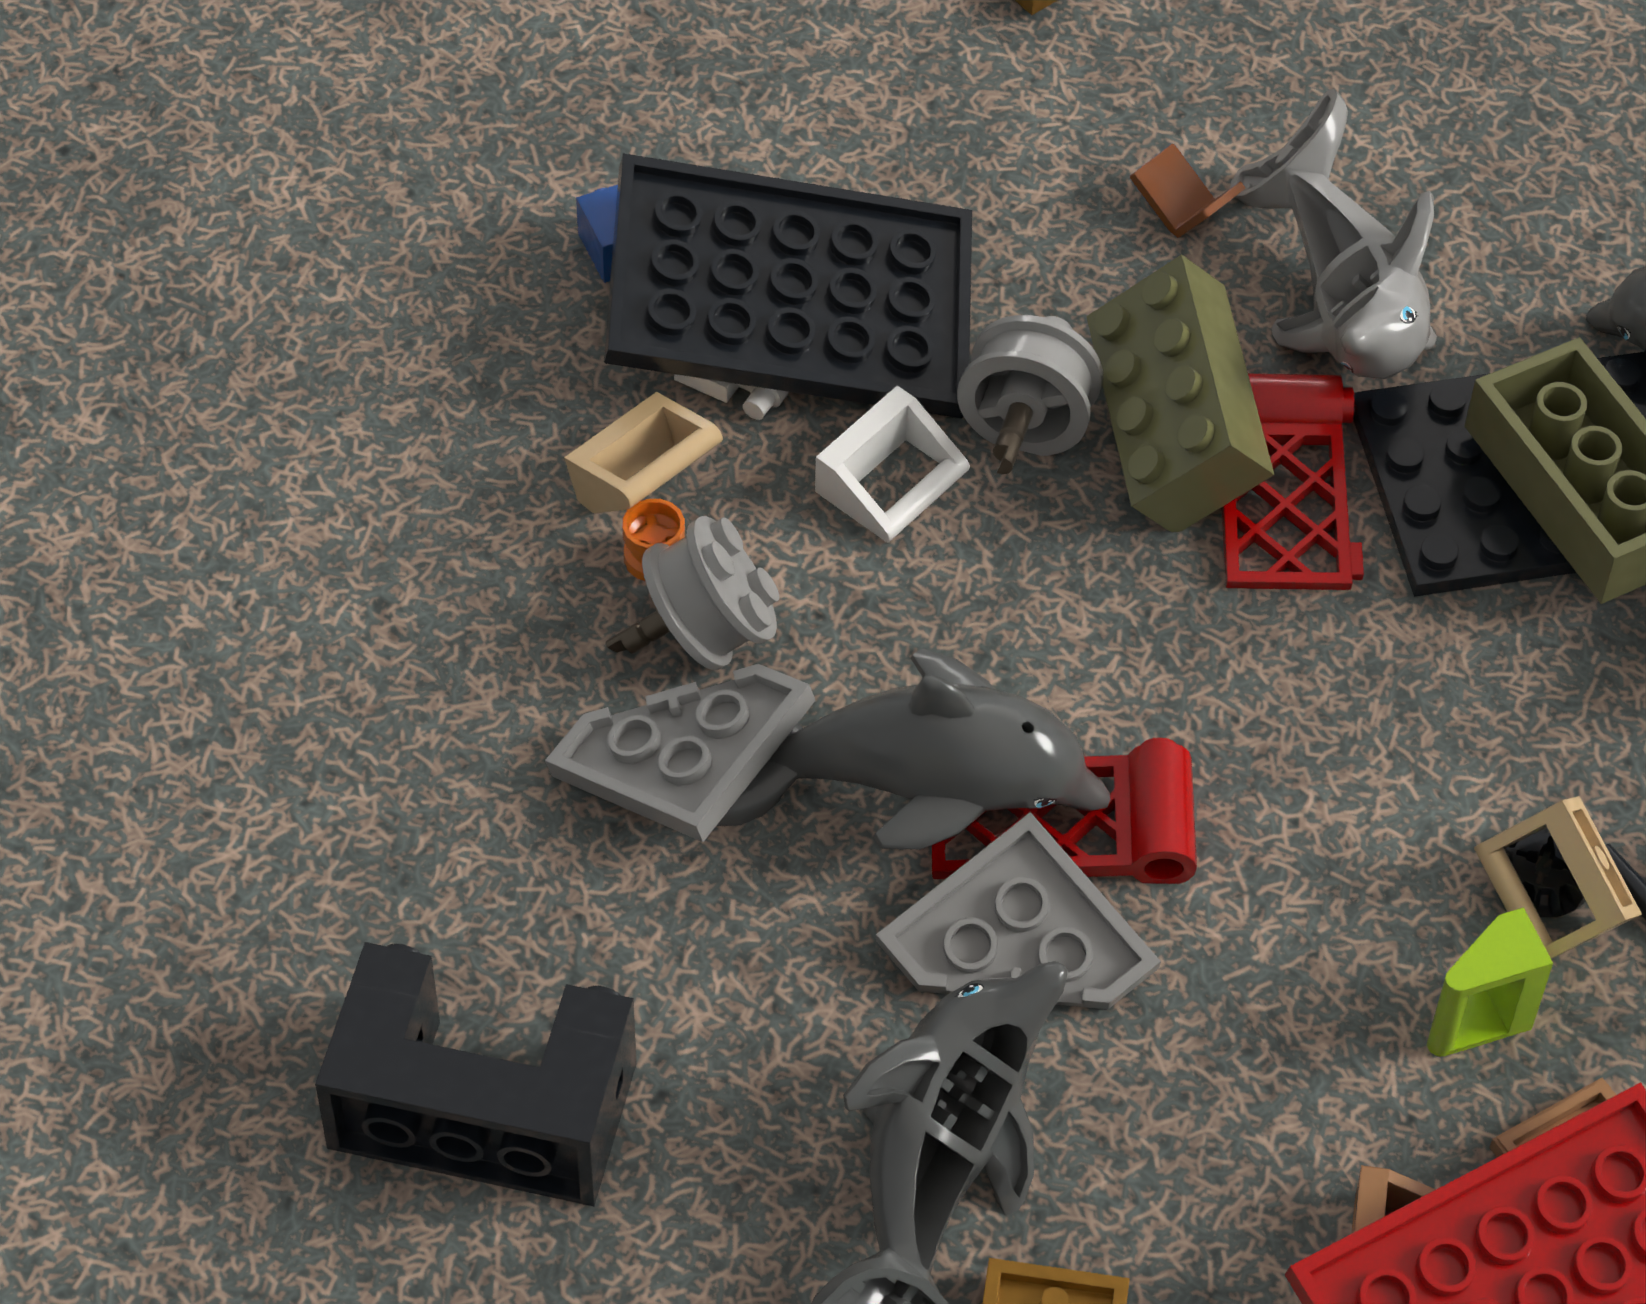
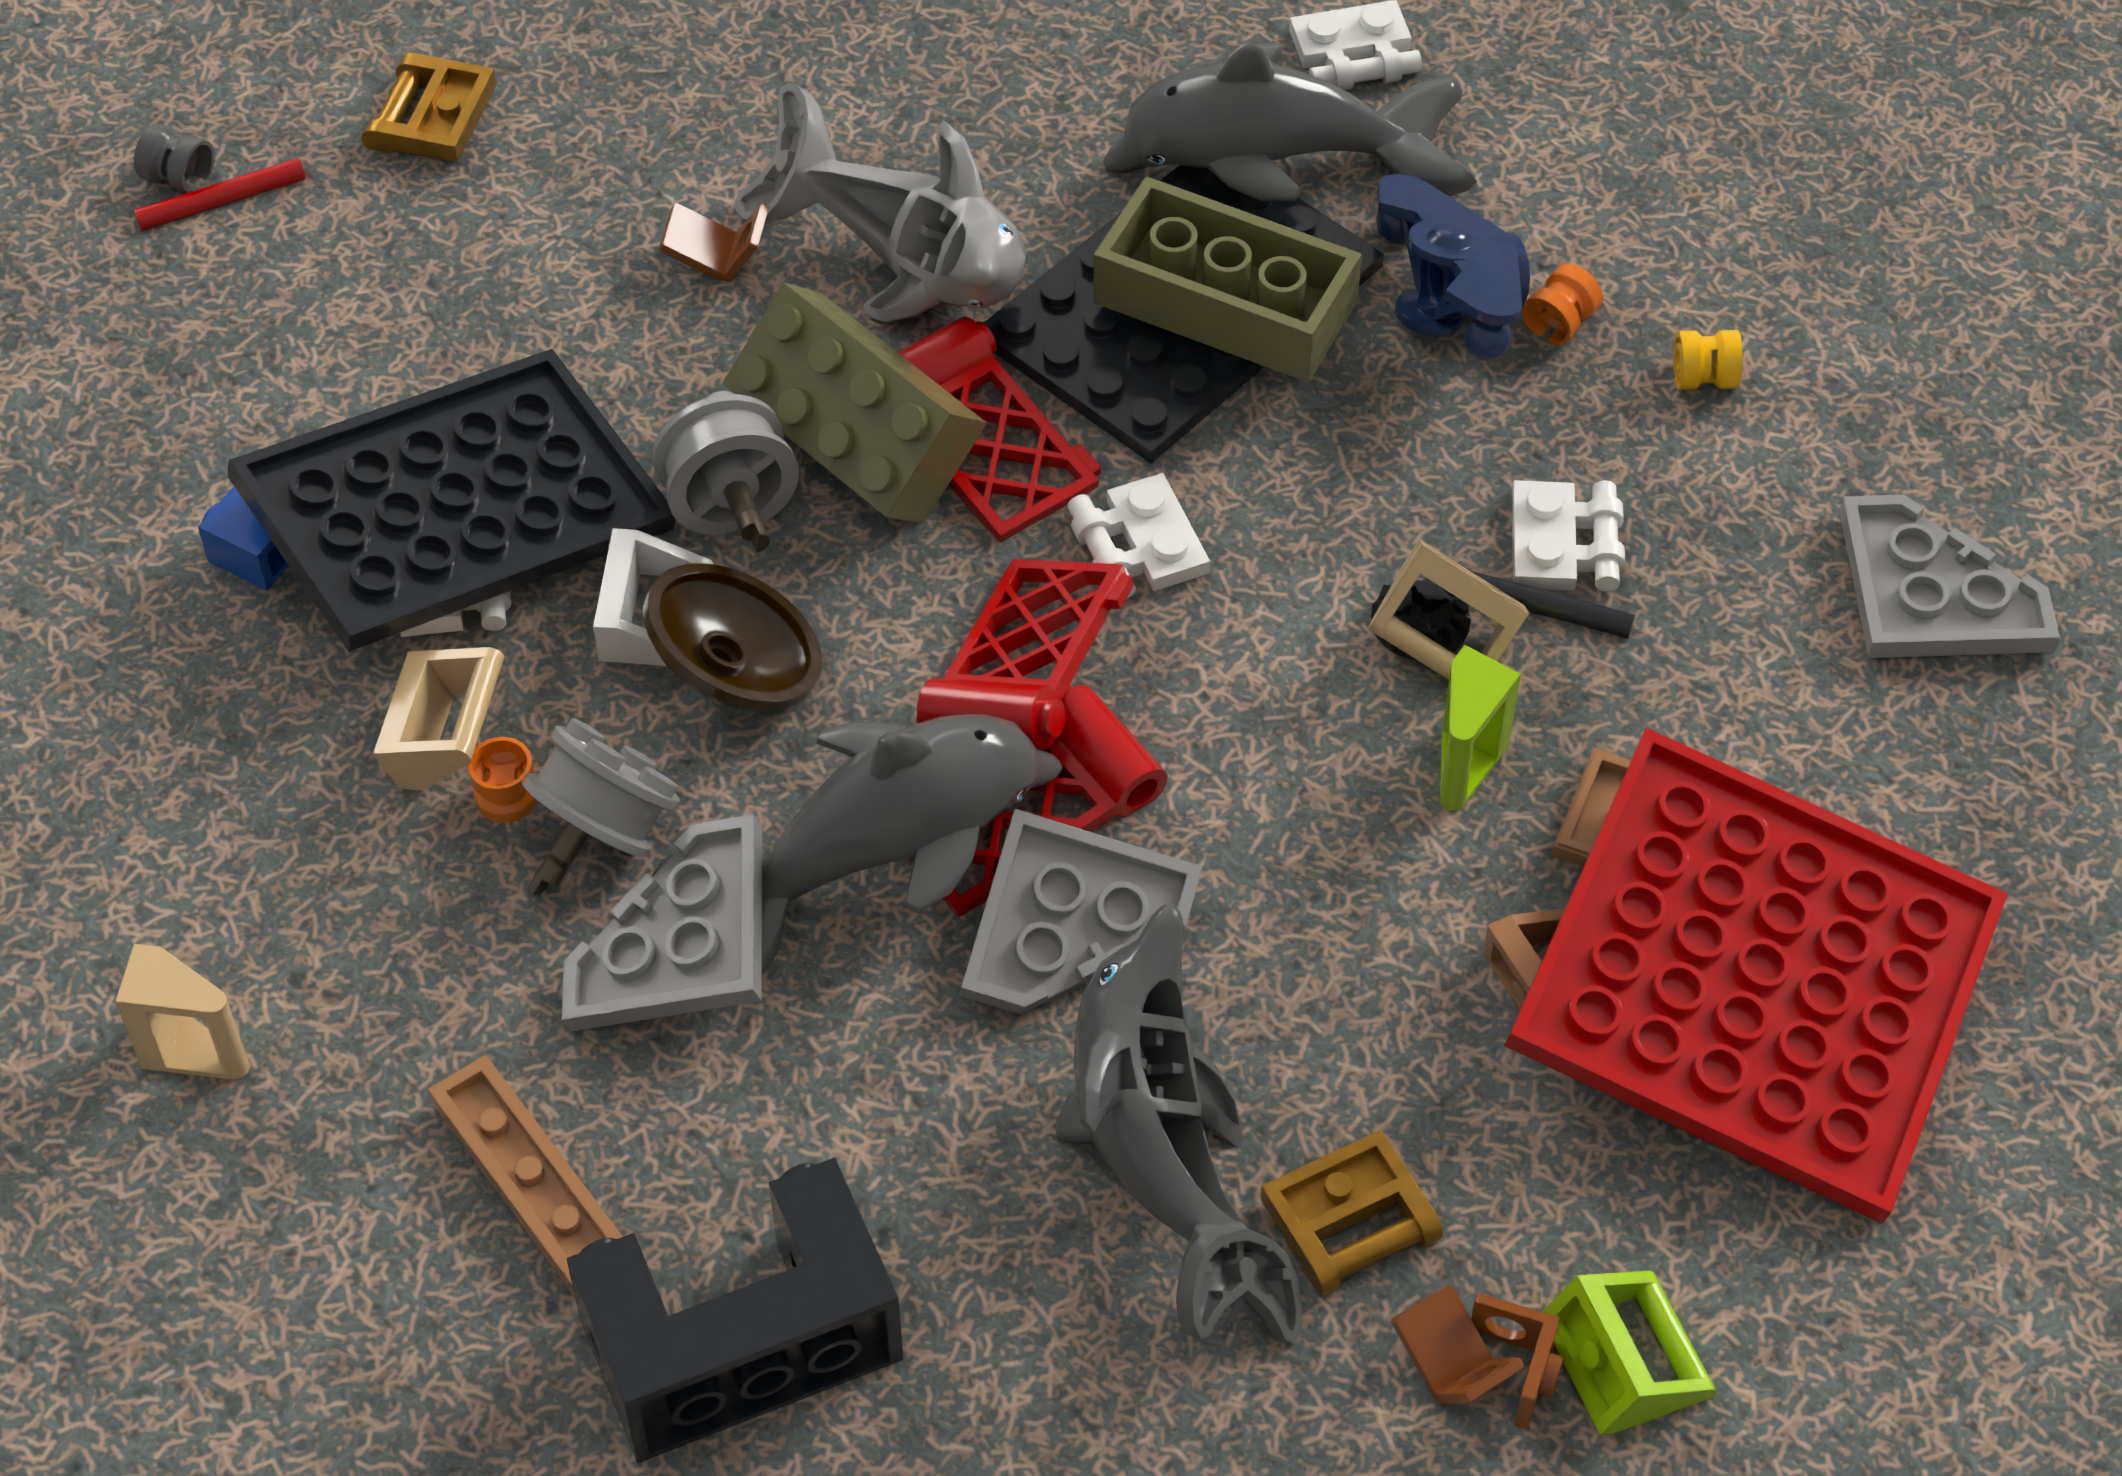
camera: 35 degrees left, 0 degrees up
(249, 573) = (158, 1011): none -> tan tile
(426, 856) = (521, 1163): none -> medium nougat plate
(922, 531) = (732, 637): none -> dark brown dish
(1106, 718) = (1003, 692): none -> red piece
(1367, 653) = (1154, 527): none -> white plate

